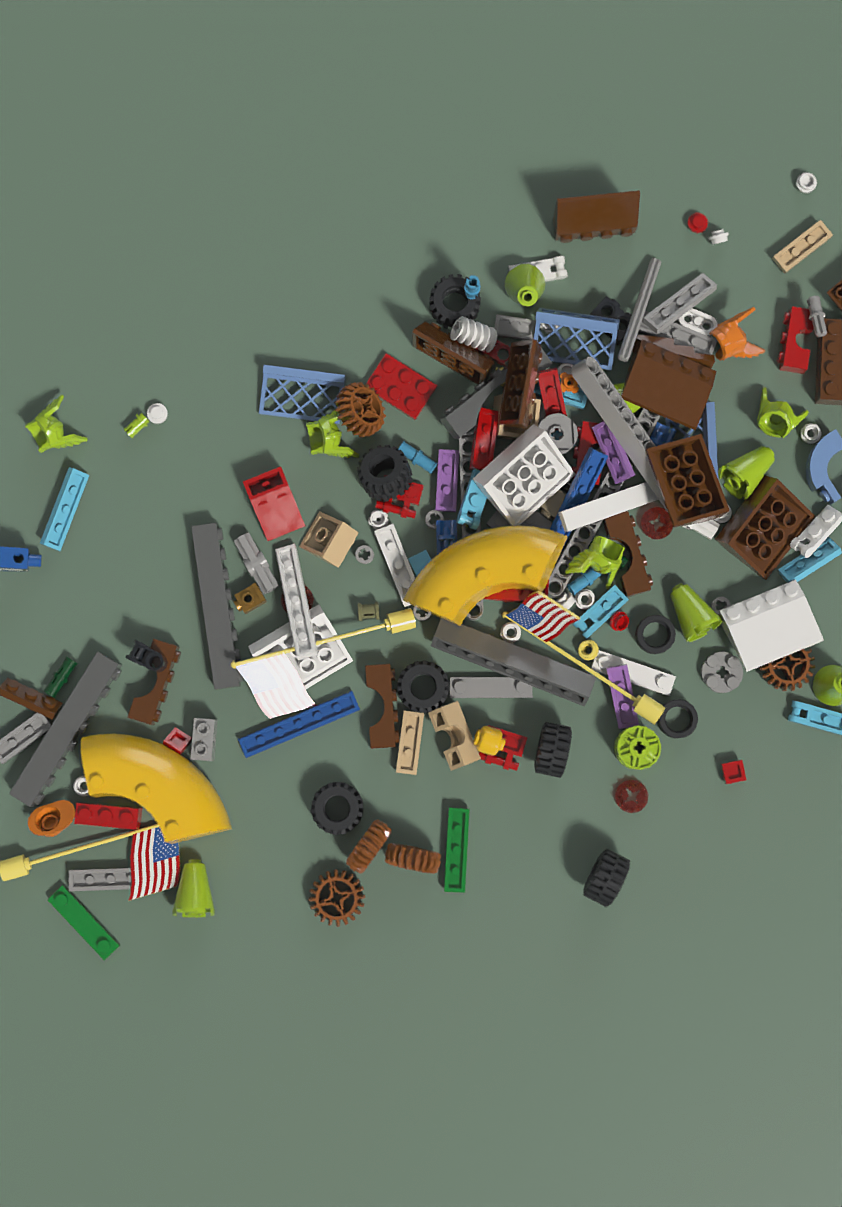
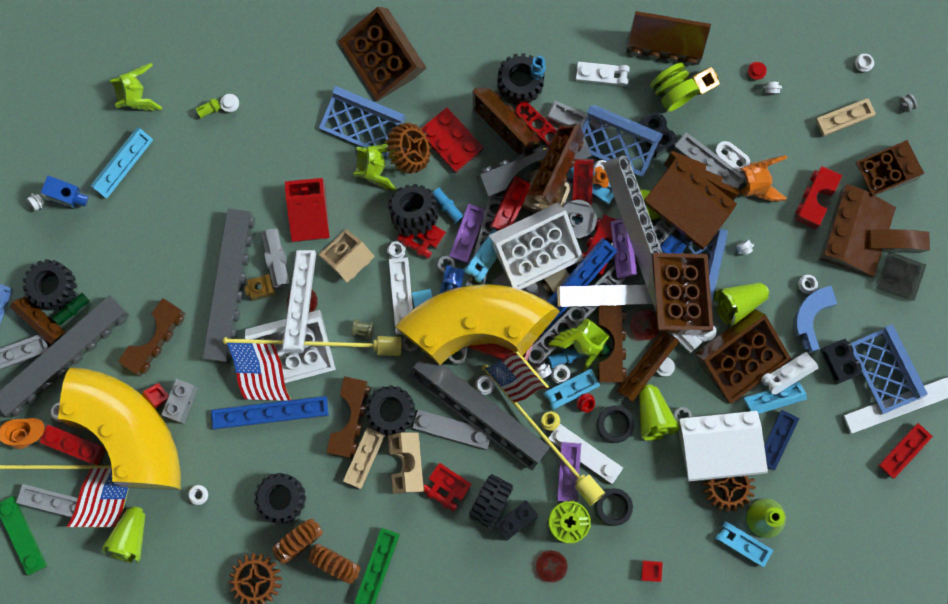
camera: 15 degrees right, 5 degrees down
(14, 653) = (39, 274): none -> black tyre
(143, 656) = (149, 310): black piece -> none
(245, 829) = (194, 490): none -> white plate
(301, 315) = (382, 53): none -> reddish brown slope
(368, 549) = (370, 282): light grey bush -> none
(474, 334) = (529, 109): white piece -> none
(489, 740) = (435, 476): yellow head -> none
(525, 284) = (587, 80): lime cone -> none
(583, 760) = (516, 520): none -> black brick
(617, 265) = (673, 85): none -> lime wheel
(639, 310) = (682, 131): light grey axle -> none
(645, 250) = (705, 80): none -> brick
(671, 565) = (647, 366): none -> reddish brown plate
(679, 303) = (721, 135): light grey plate -> none
(688, 560) = (666, 368): none -> white plate
(730, 664) = (657, 482): light grey plate -> none
(736, 414) = (745, 247): none -> white plate
(777, 417) = (781, 260): lime helmet -> none
(817, 315) = (841, 179): light grey axle -> none
(824, 600) = (779, 438): none -> dark blue plate

